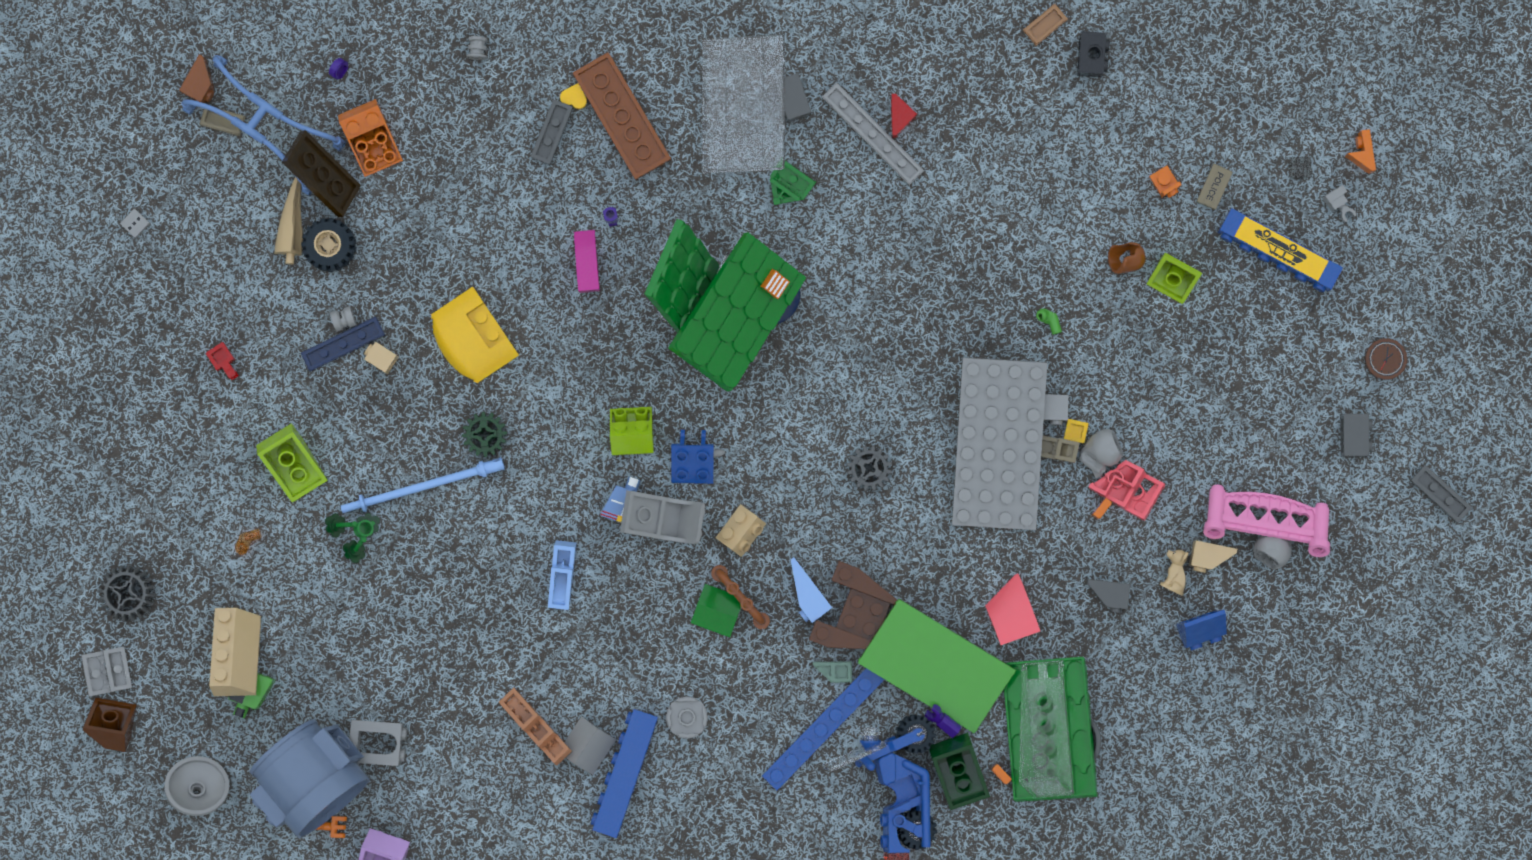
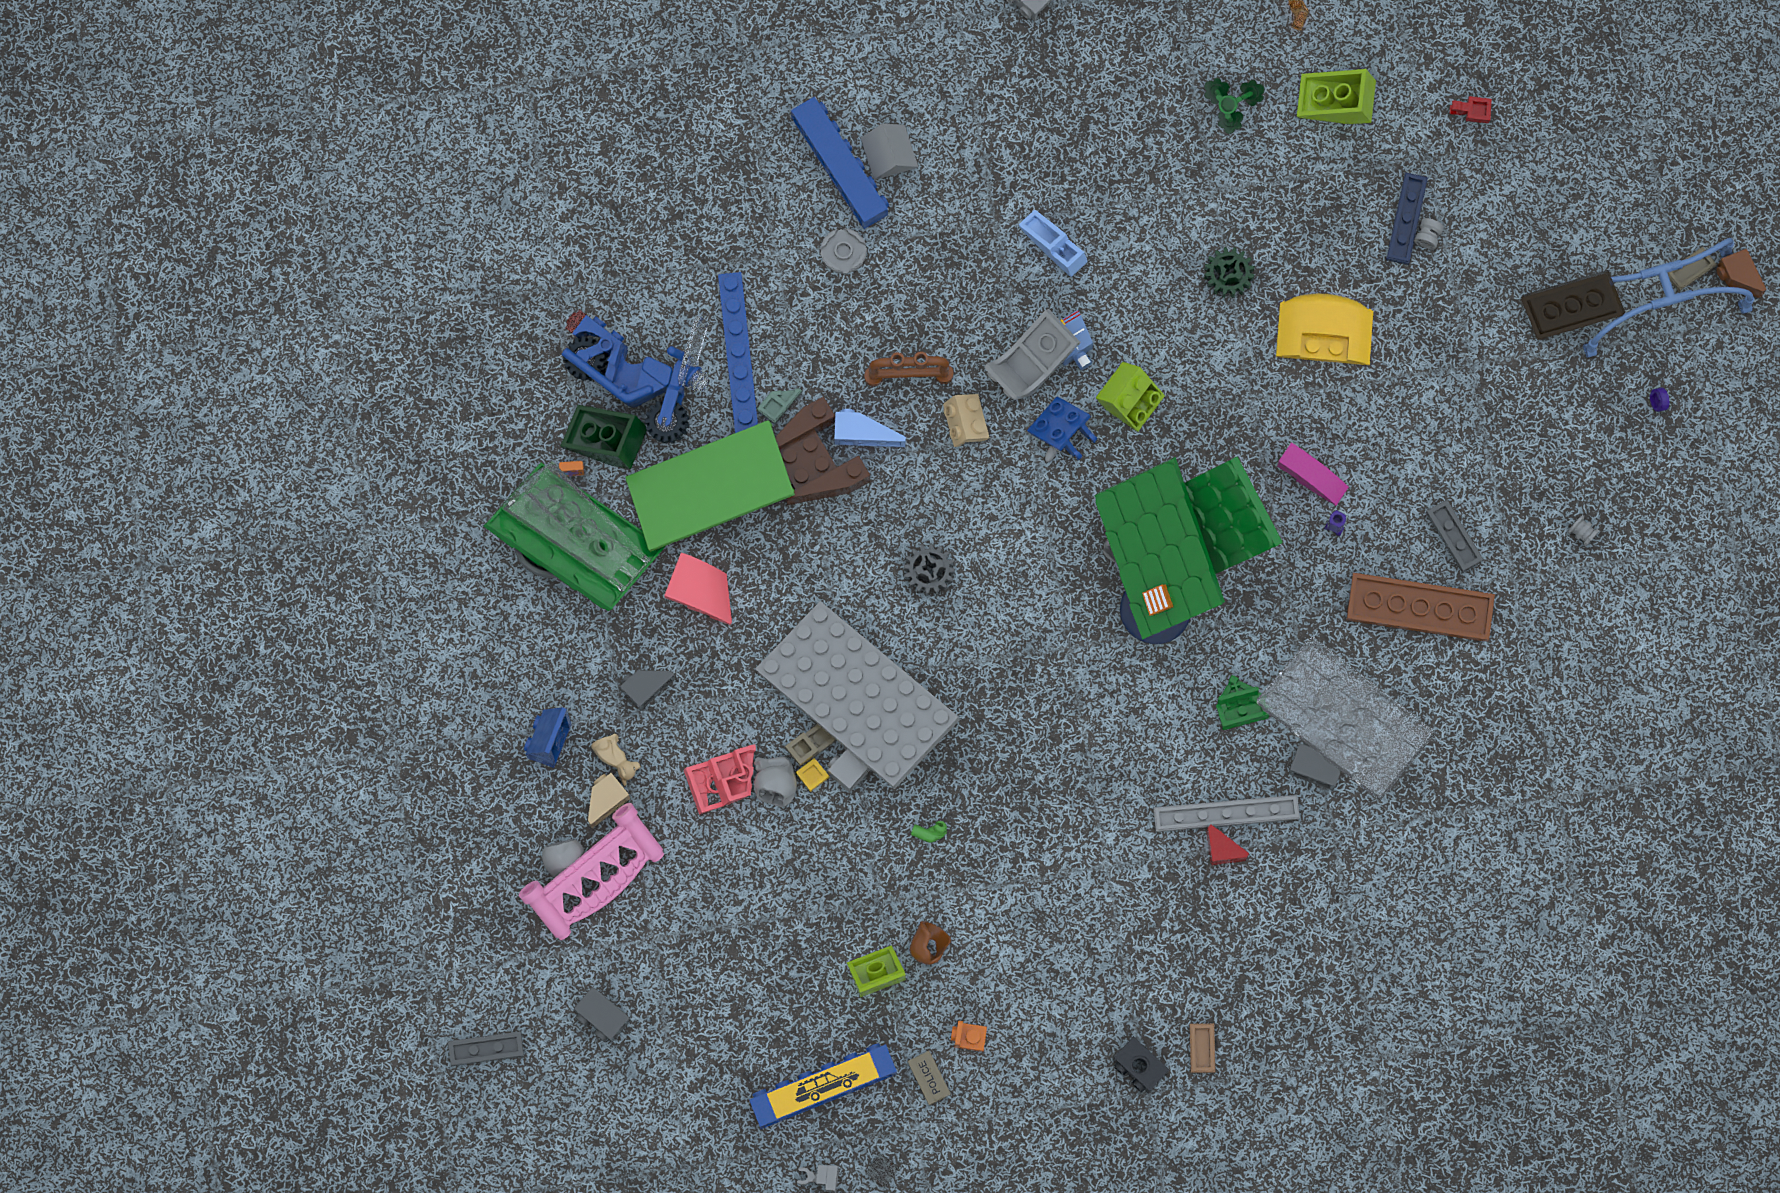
camera: 125 degrees right, 10 degrees down
(135, 223) = (1655, 129): light grey tile -> none
(290, 226) = (1545, 251): tan piece -> none
(329, 244) = (1508, 261): black wheel -> none
(370, 137) = (1575, 378): orange slope -> none
(380, 357) = (1368, 238): tan brick -> none
(481, 469) = (1200, 247): light blue bar -> none
(535, 726) = (941, 121): nougat slope -> none
(574, 97) = (1471, 580): yellow tile -> none
(716, 610) = (913, 339): green slope -> none
(943, 721) = (657, 455): dark purple bar -> none
(1102, 508) = (725, 739): orange tile -> none
(1386, 359) = (646, 1102): reddish brown tile -> none

